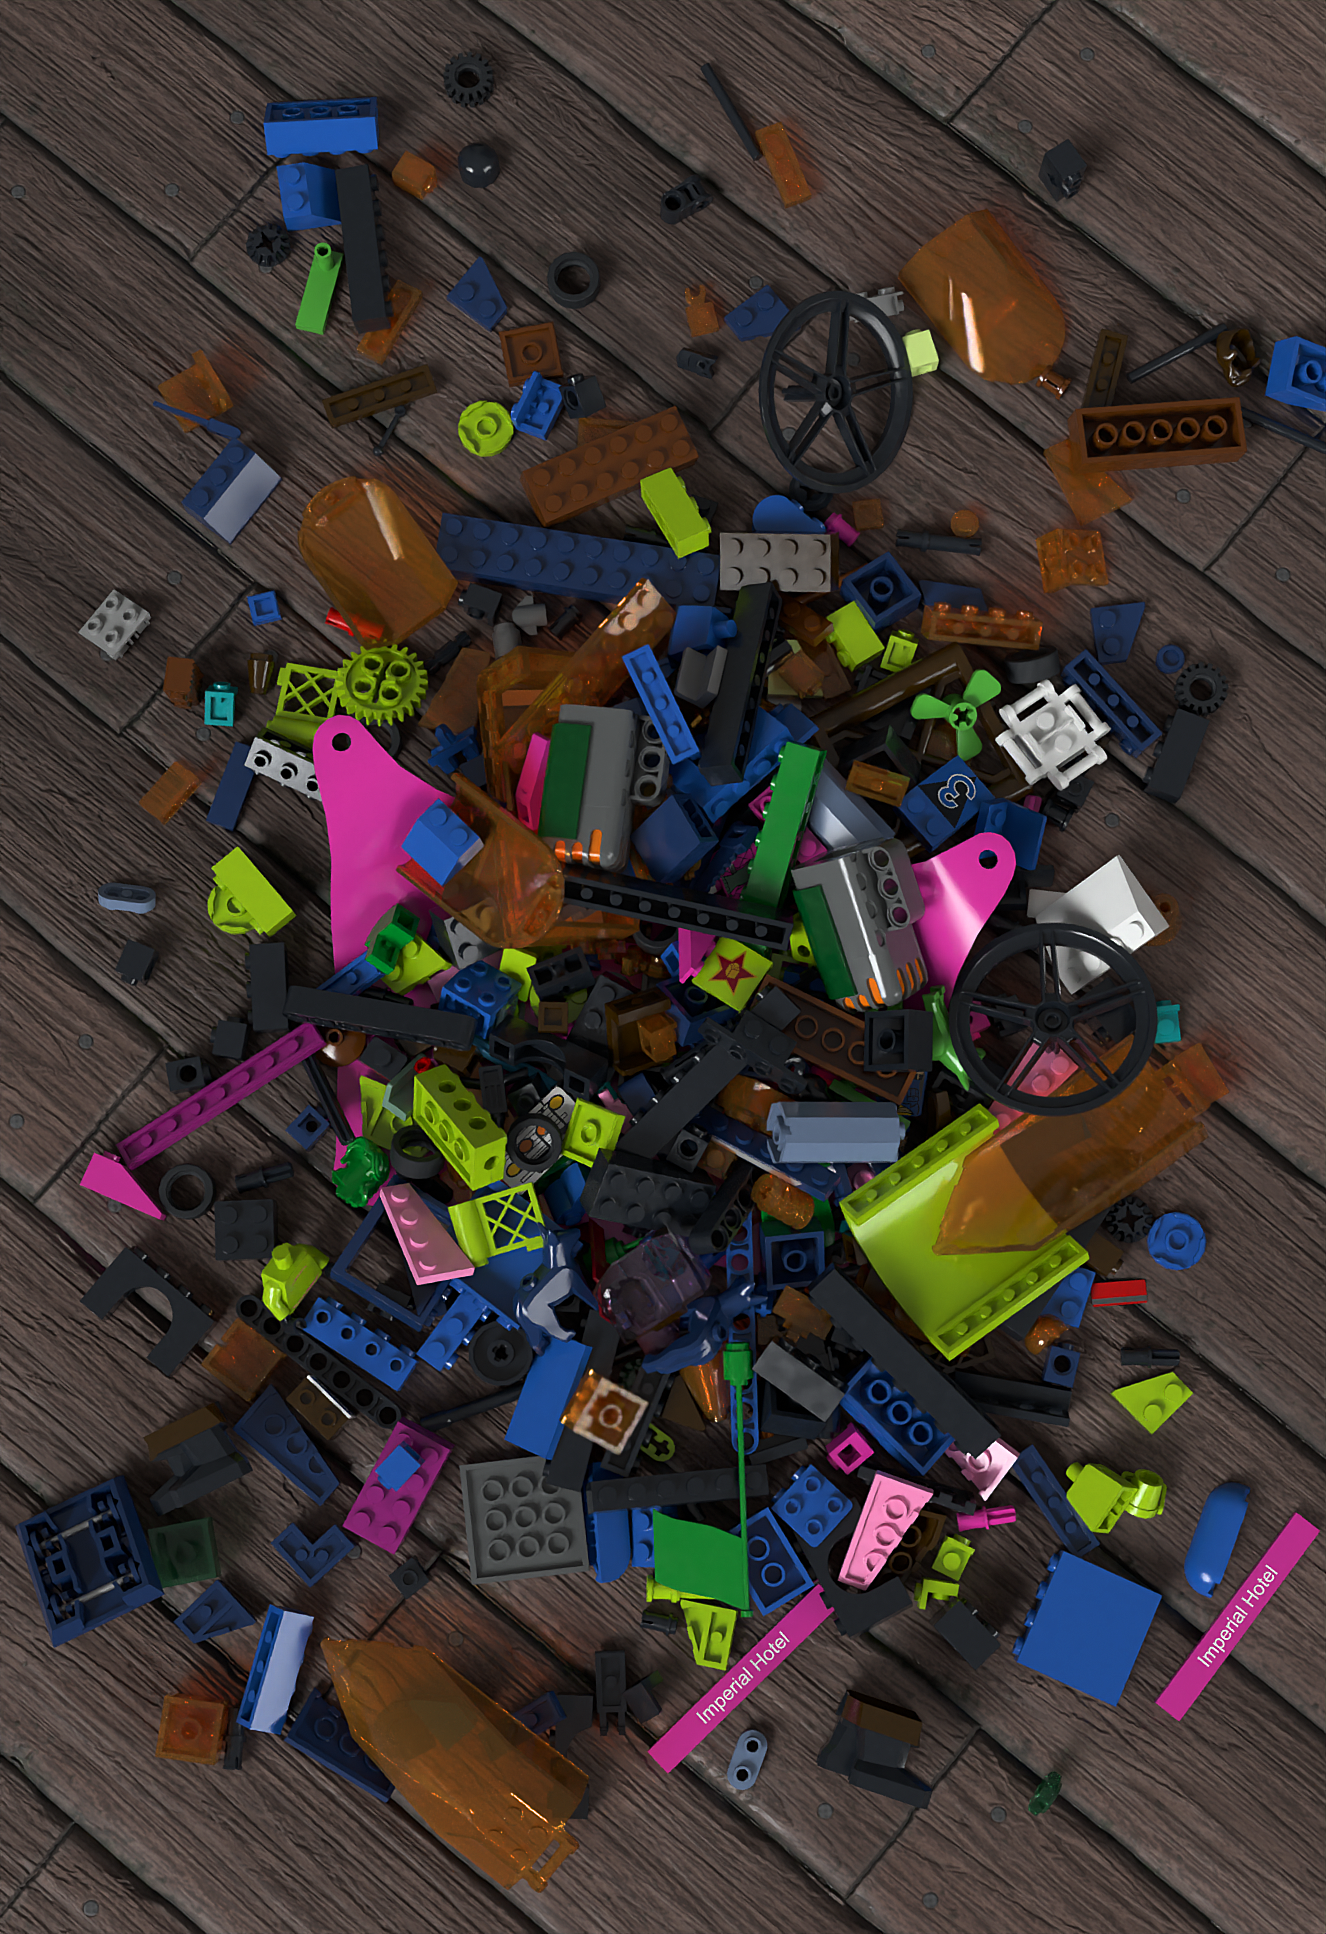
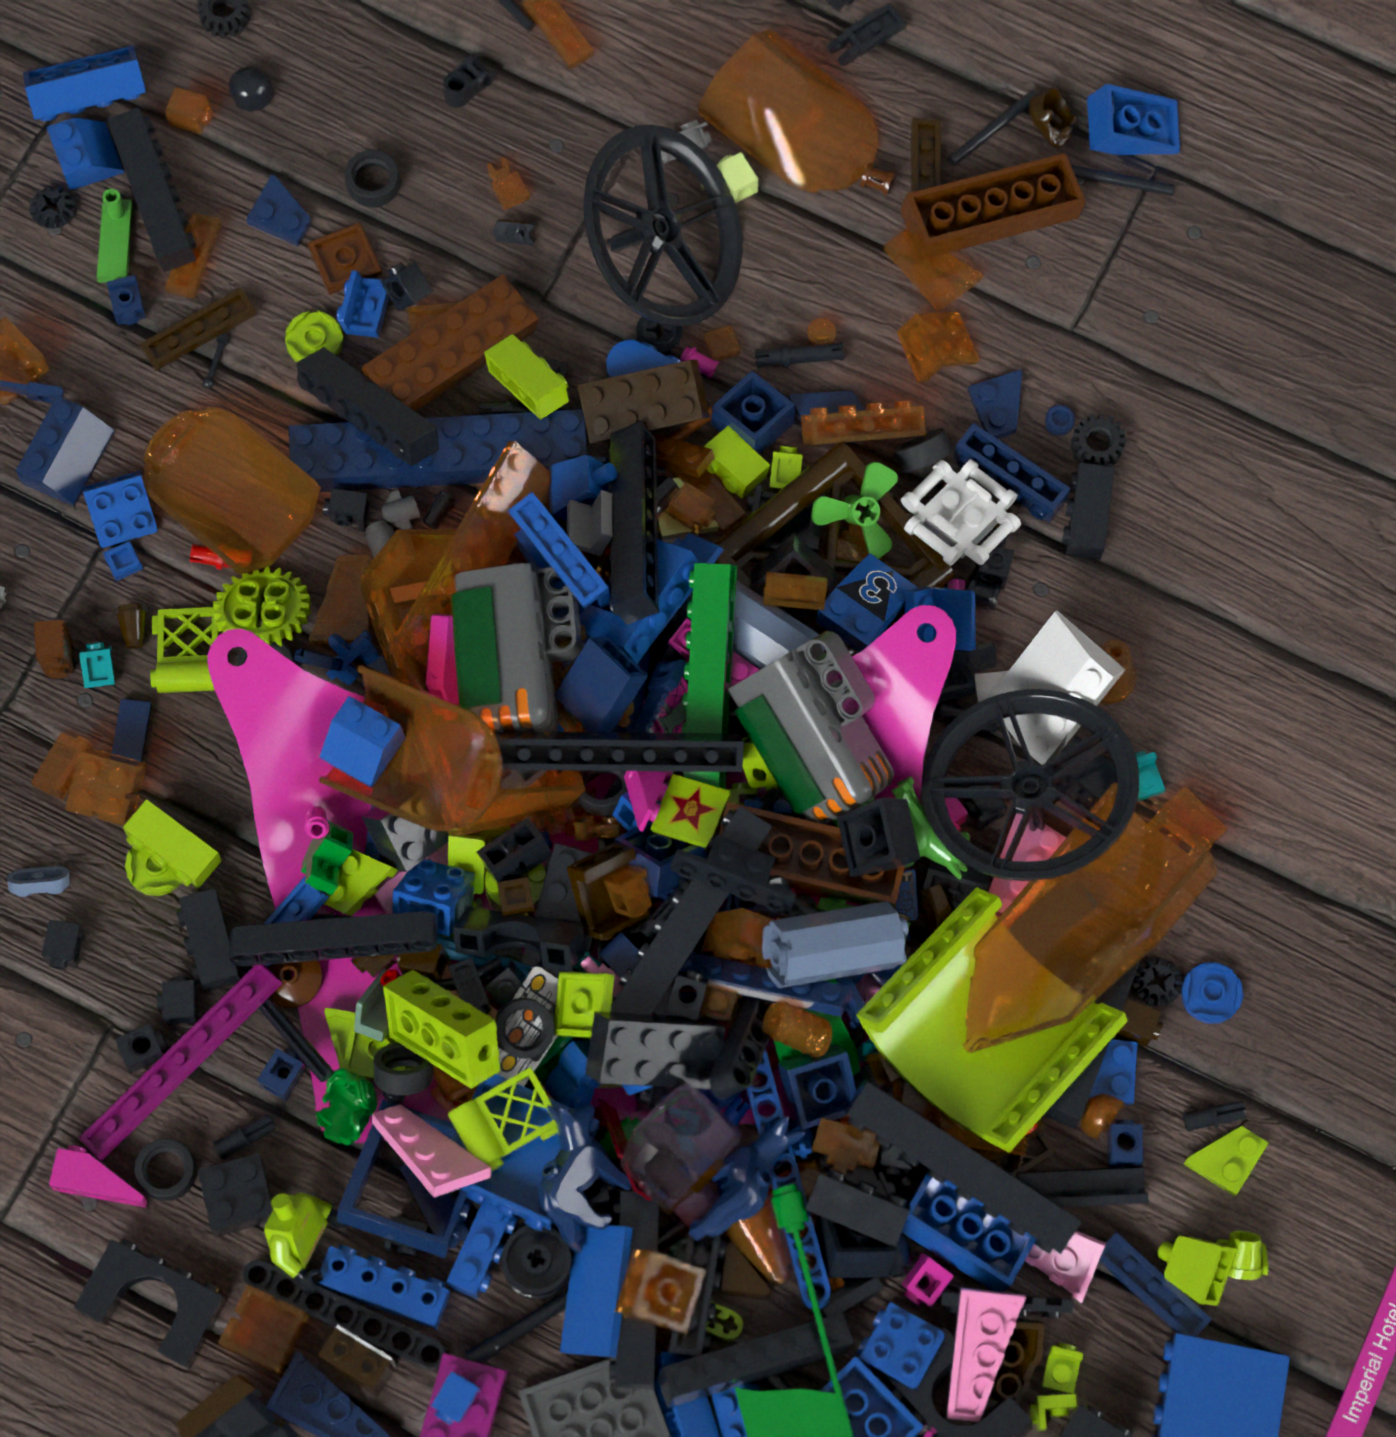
camera: 15 degrees left, 10 degrees down
(201, 822) = (102, 786): none -> clear orange piece
(271, 557) = (120, 509): none -> blue bracket
(284, 761) = (184, 708): brick -> none
(318, 343) = (126, 290): none -> dark blue brick
(383, 1059) = (344, 984): black torso -> none
(386, 908) = (316, 823): none -> dark pink pin
(422, 746) = (318, 659): none -> dark blue tile
(435, 1187) = (427, 1104): black piece -> none
(447, 653) = (322, 565): black axle -> none
(519, 511) = (367, 406): none -> black brick
(757, 315) = (565, 176): dark blue wing -> none
(986, 1517) = (1086, 1320): dark pink axle -> none
(1079, 232) = (868, 33): none -> black hinge
(1118, 1293) = (1166, 1059): red sticker -> none
(1215, 1536) = (1329, 1287): blue brick -> none

